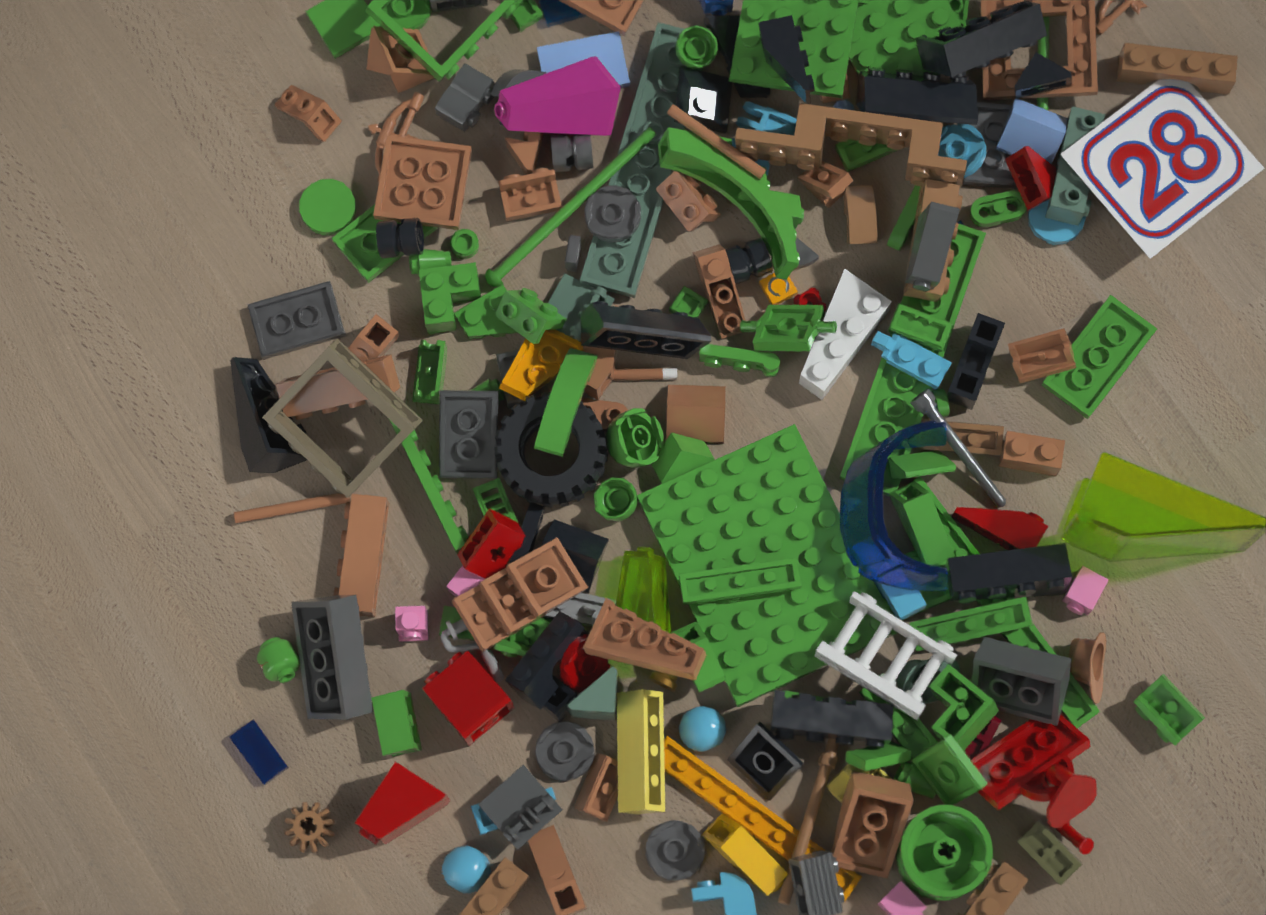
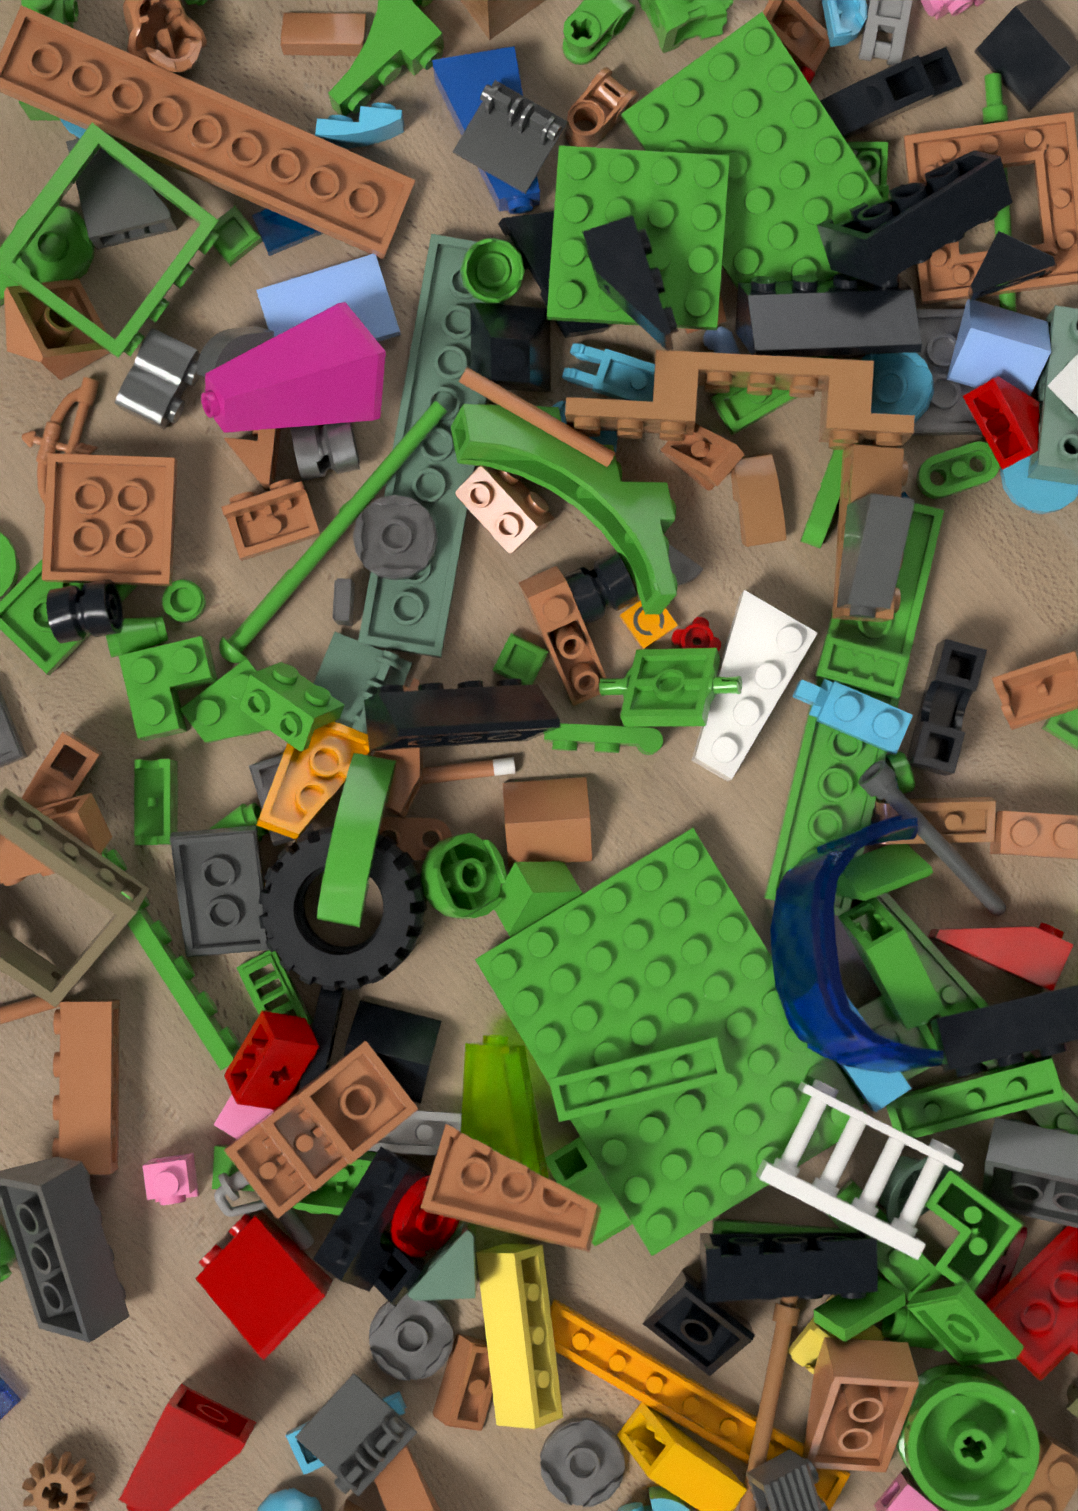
camera: 10 degrees left, 10 degrees up
(396, 723) = (166, 1326): bright green hinge -> none
(615, 499) = (444, 966): bright green hair -> none
(702, 728) = (603, 1284): medium azure hair -> none

